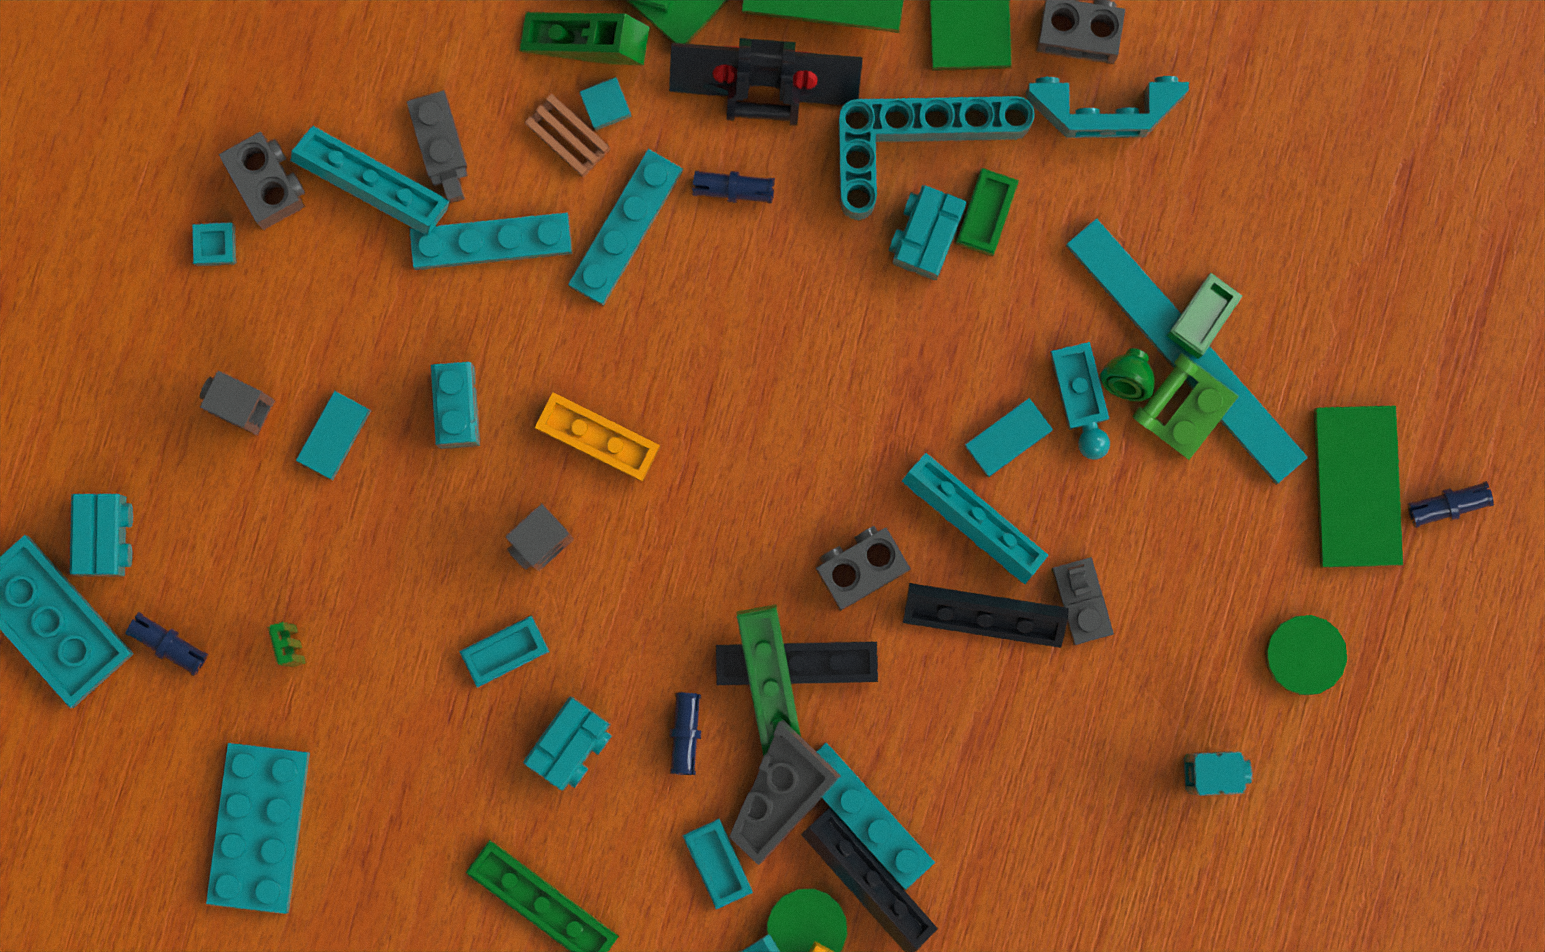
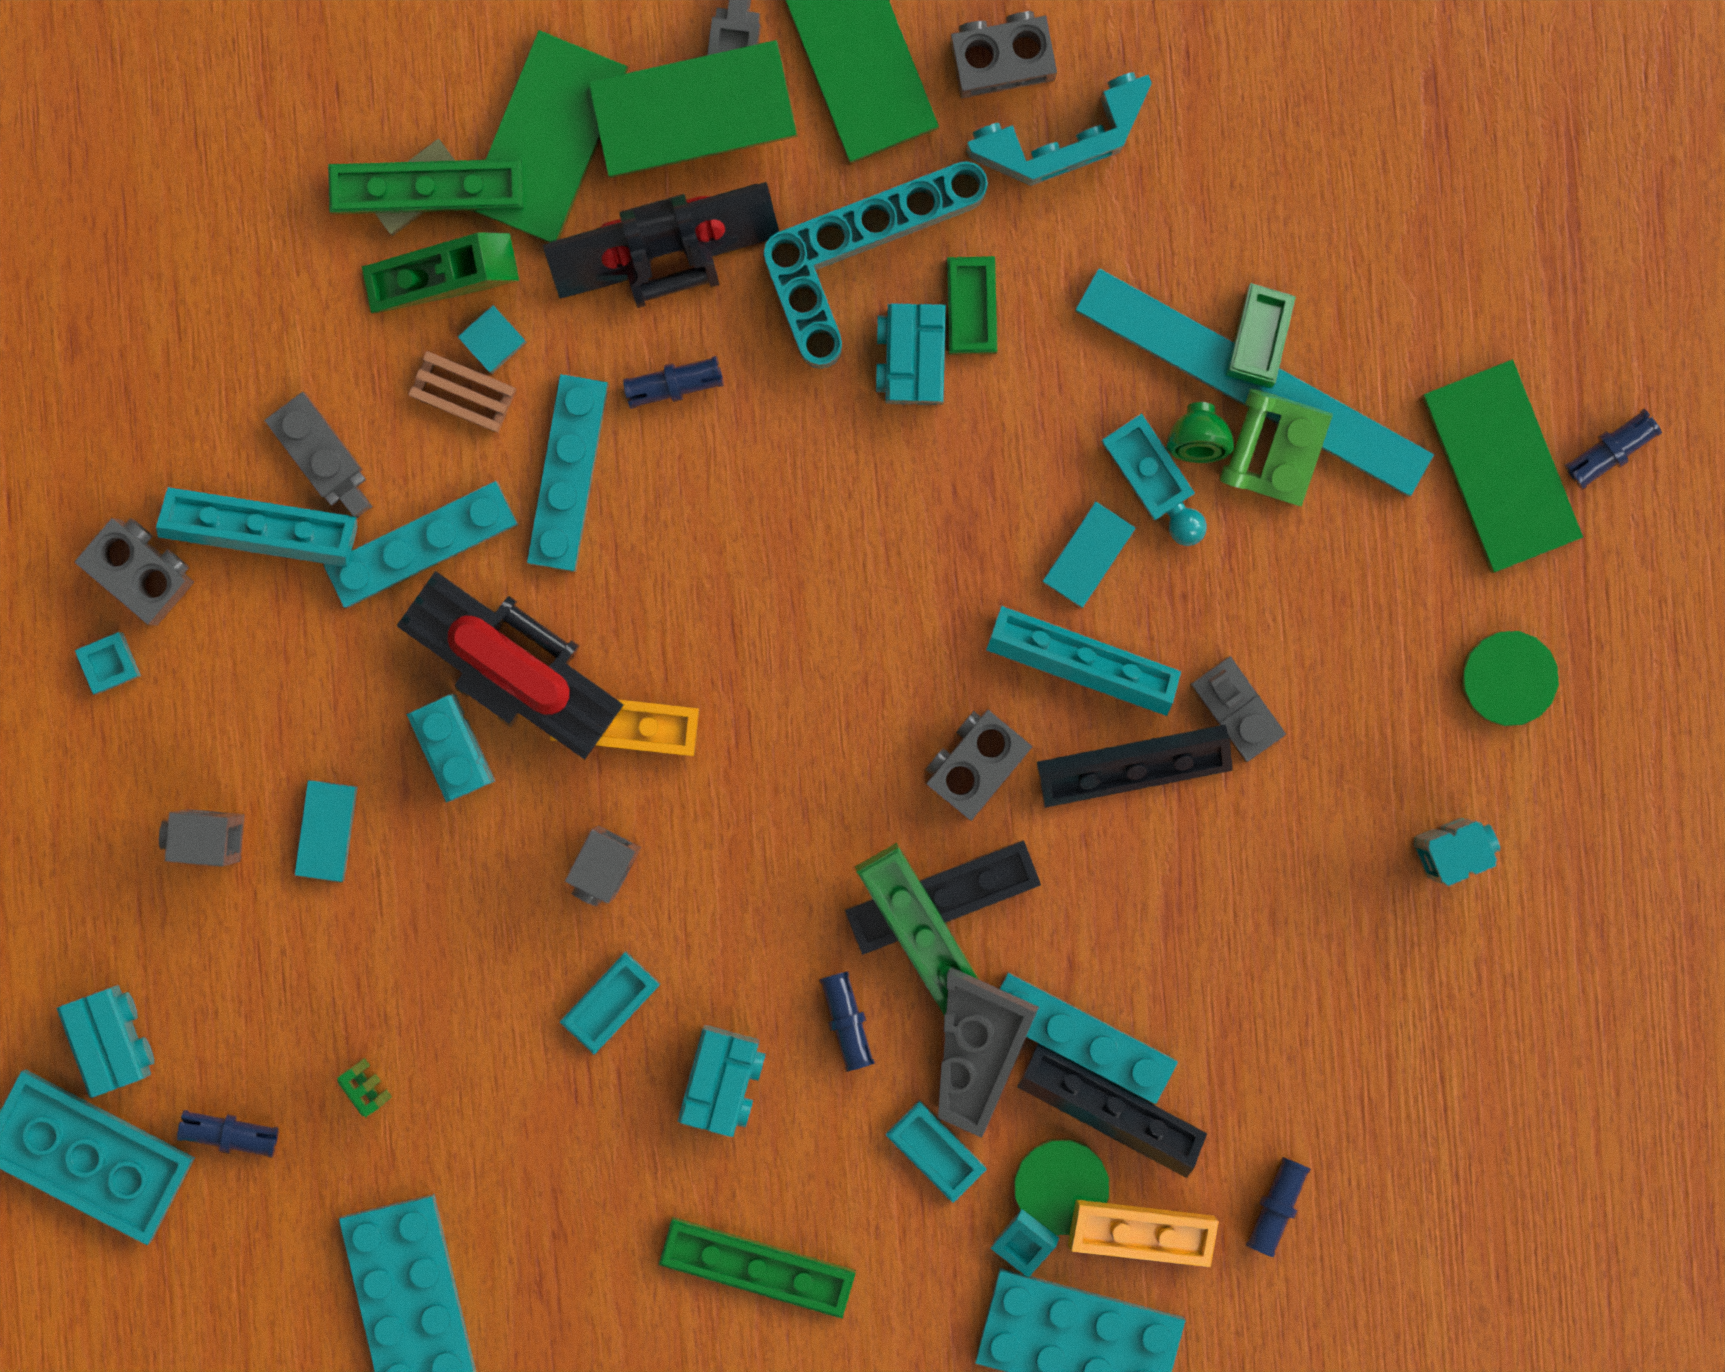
camera: 20 degrees left, 5 degrees up
(518, 361) = (502, 672): none -> black piece

